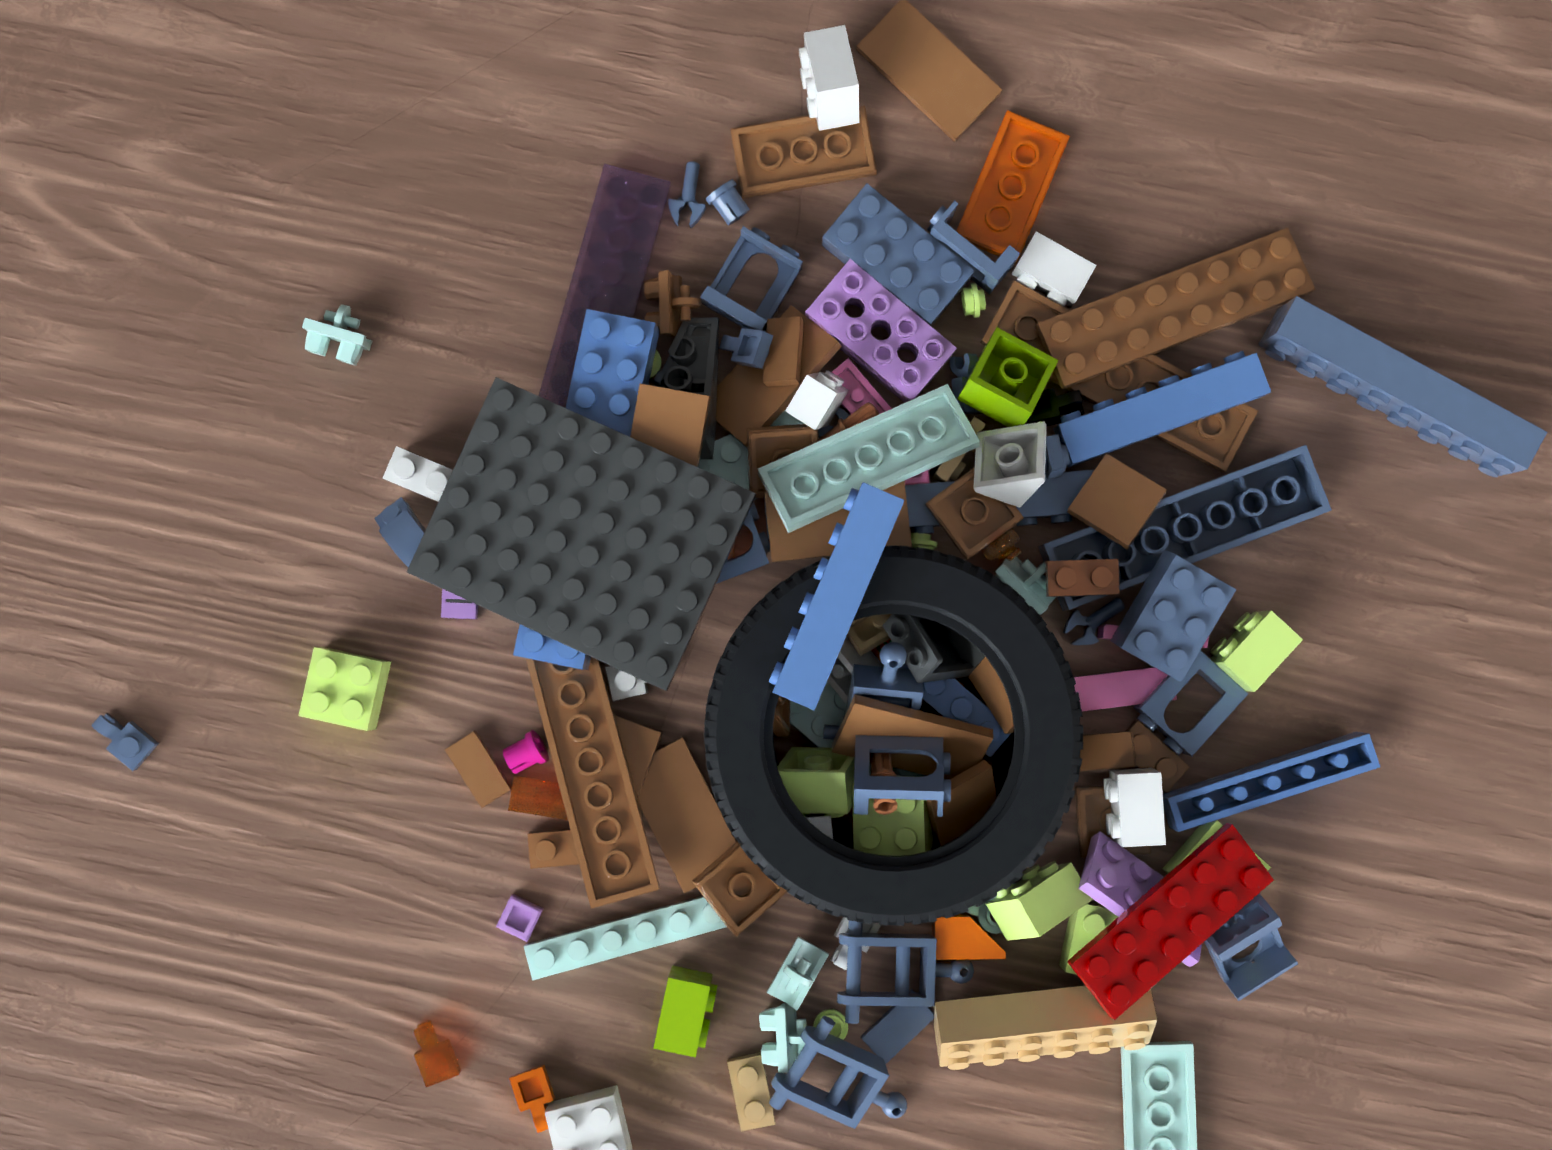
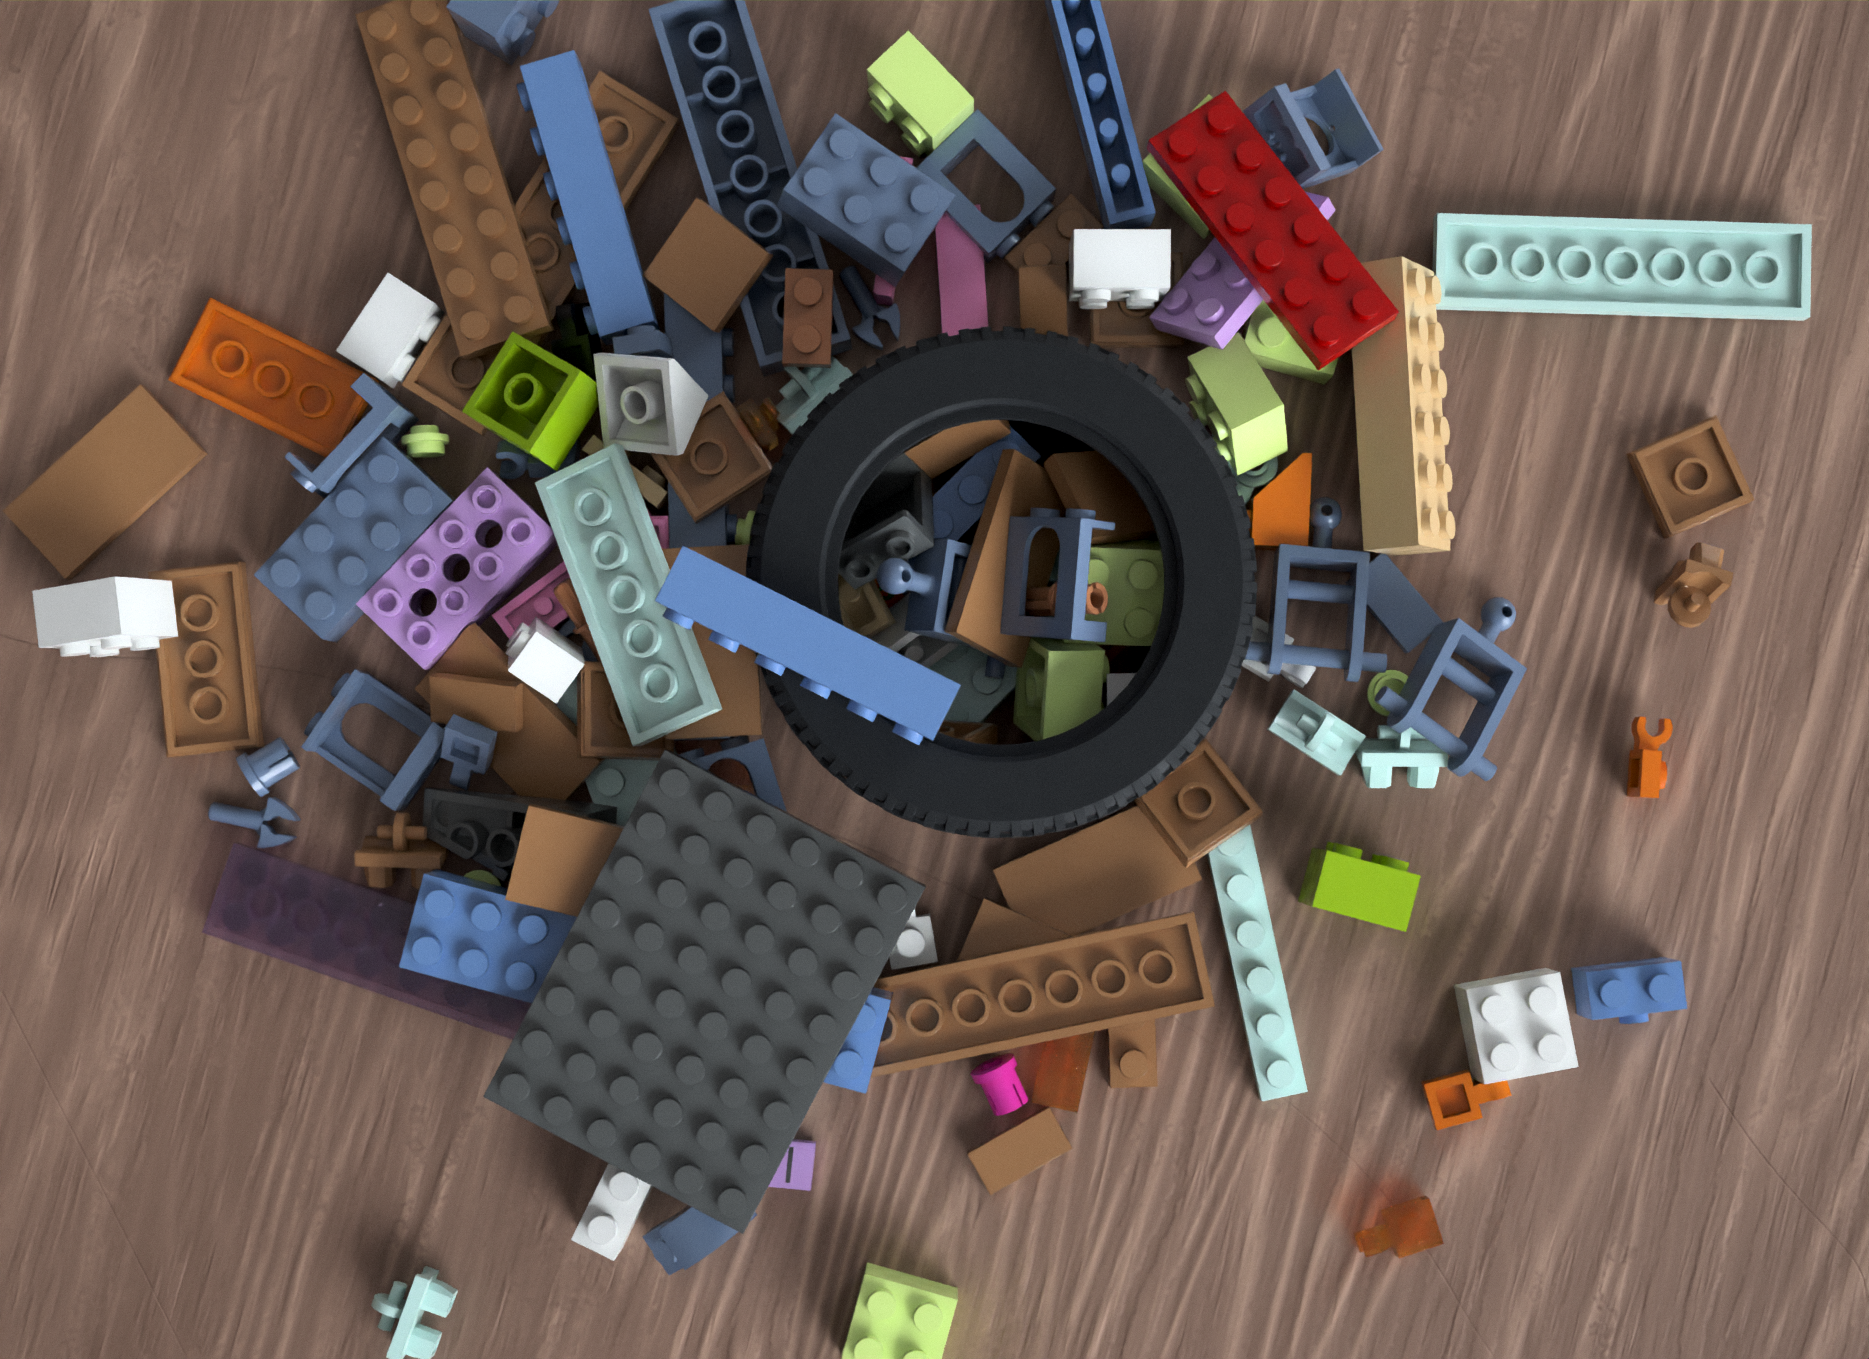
camera: 80 degrees left, 0 degrees up
(519, 917) = (1223, 1104): lavender tile -> none
(751, 1091) = (1471, 804): tan plate -> none

